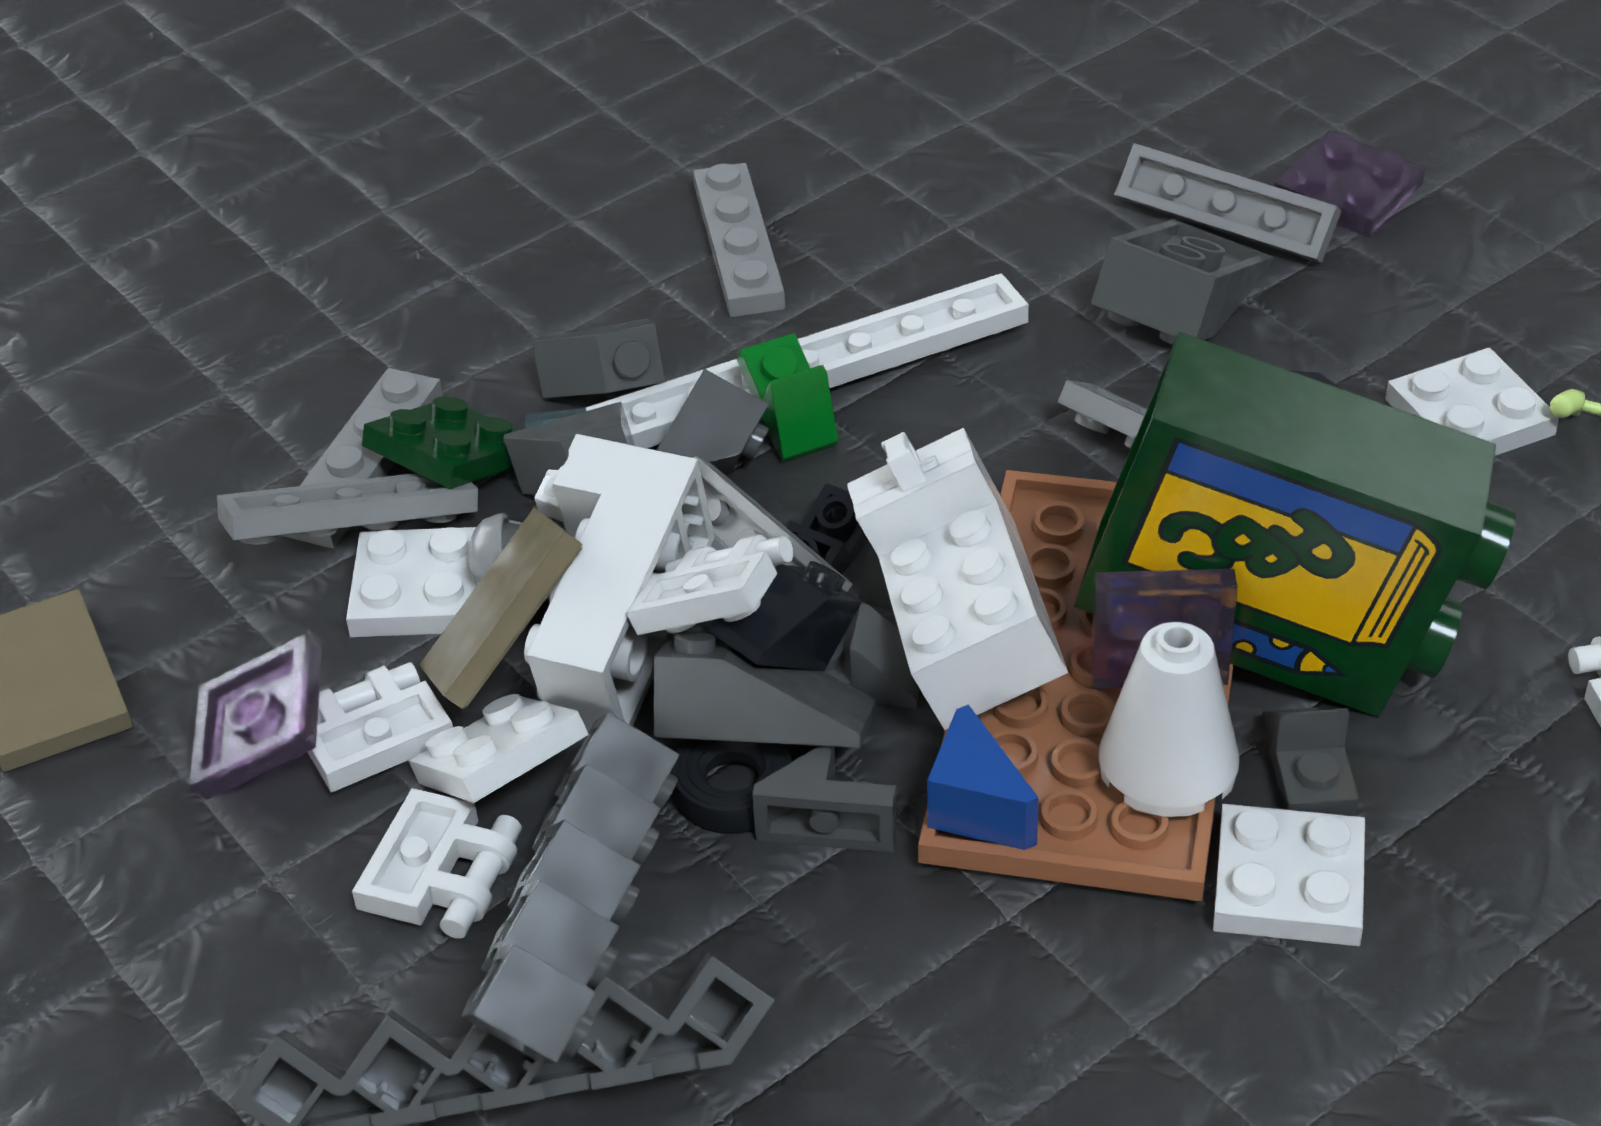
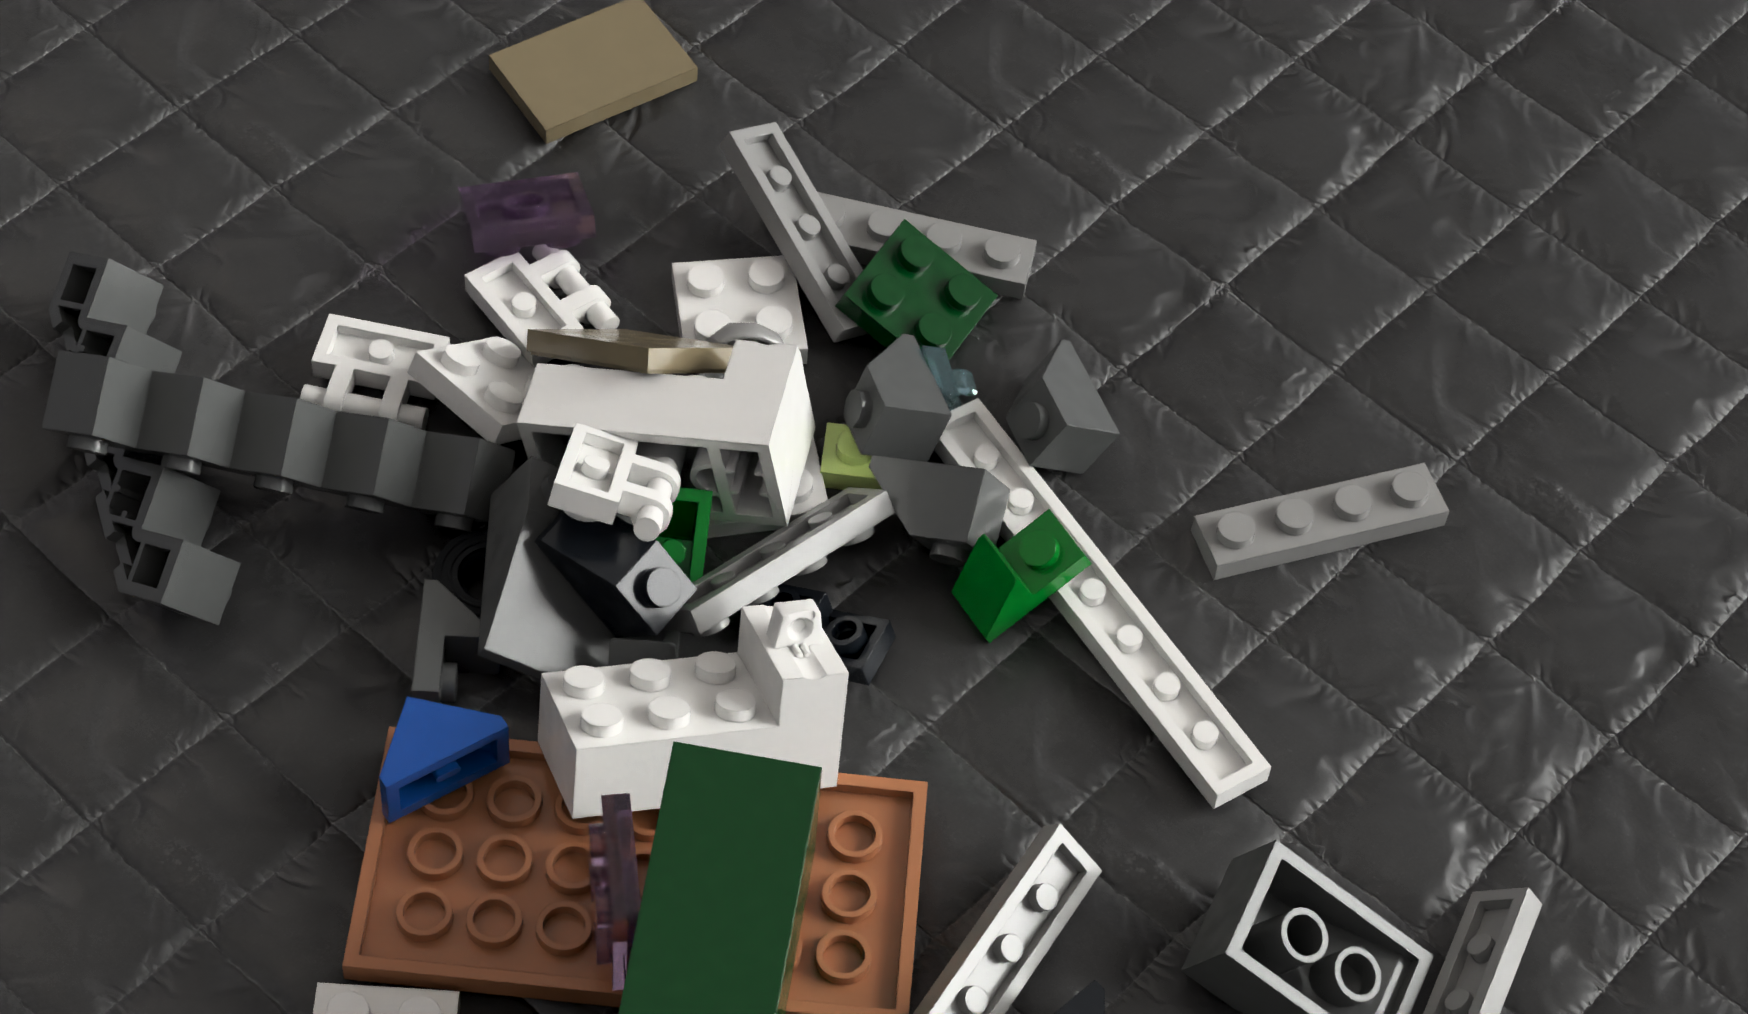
camera: 75 degrees right, 10 degrees up
(1171, 726) = (496, 913): white cone -> none

